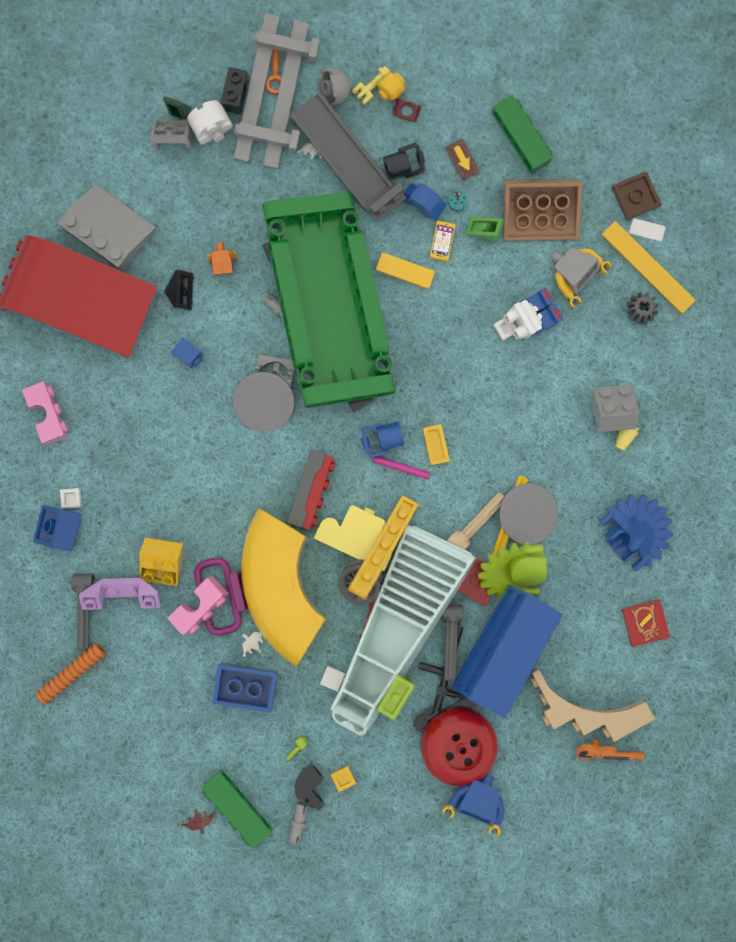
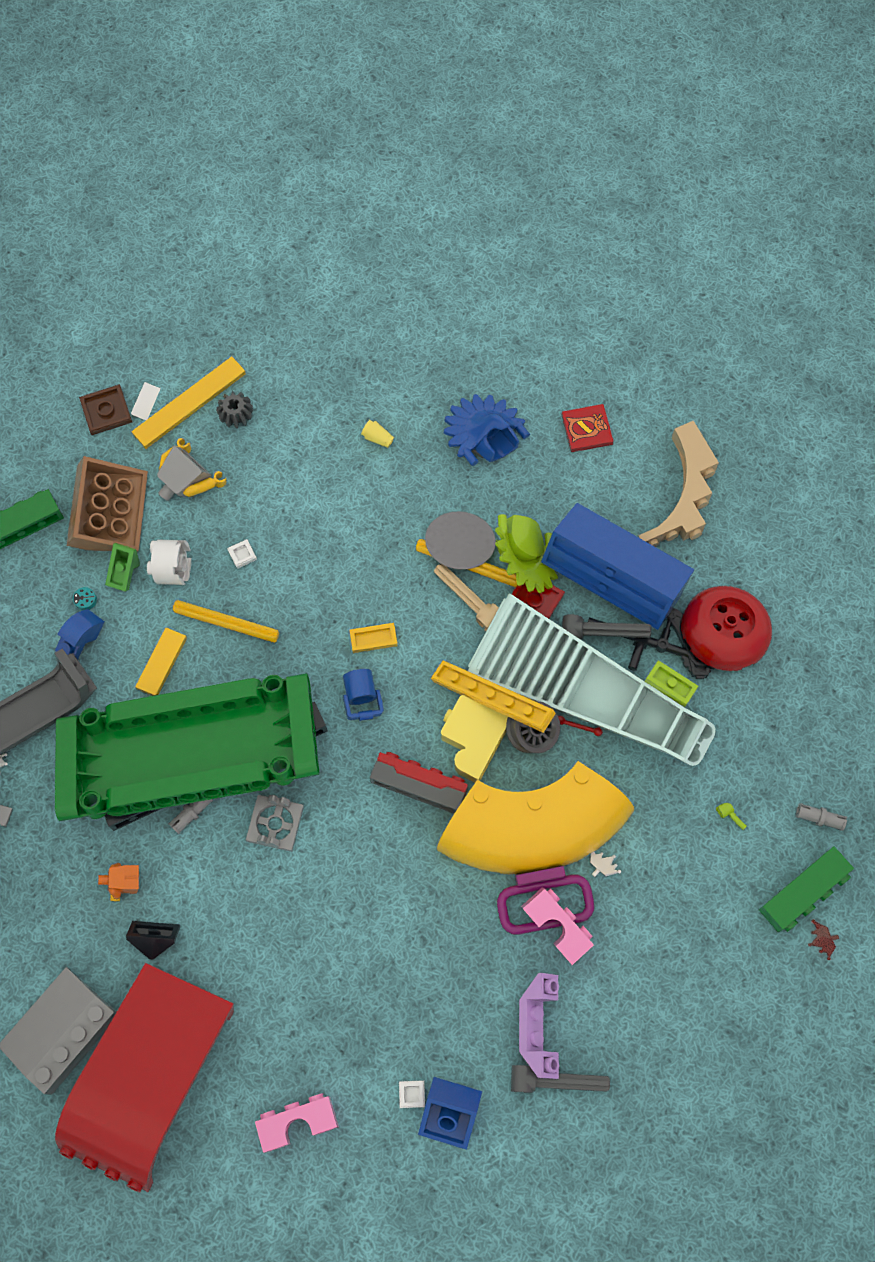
camera: 85 degrees left, 15 degrees down
(70, 674) = (641, 1100): orange piece -> none
(161, 561) = (499, 973): yellow slope -> none
(187, 353) = (235, 928): blue brick -> none
(245, 687) = (659, 871): blue brick -> none
(263, 401) = (305, 835): flat silver sticker -> none
(305, 785) = (772, 804): black brick -> none
(332, 678) = (647, 769): white tile -> none
(343, 778) = (766, 762): yellow tile -> none
(398, 163) = (29, 659): black piece -> none
(401, 467) = (397, 678): dark pink bar -> none
(442, 241) = (130, 618): tile -> none
(443, 320) = (226, 621): none -> yellow axle
(462, 159) = (35, 591): clear red tile -> none
(479, 802) = (790, 608): blue torso -> none
(491, 267) = (169, 562): none -> white brick
(526, 315) = (234, 528): hips -> none
(594, 751) = (730, 484): orange piece -> none
(615, 408) = (346, 440): light grey brick -> none

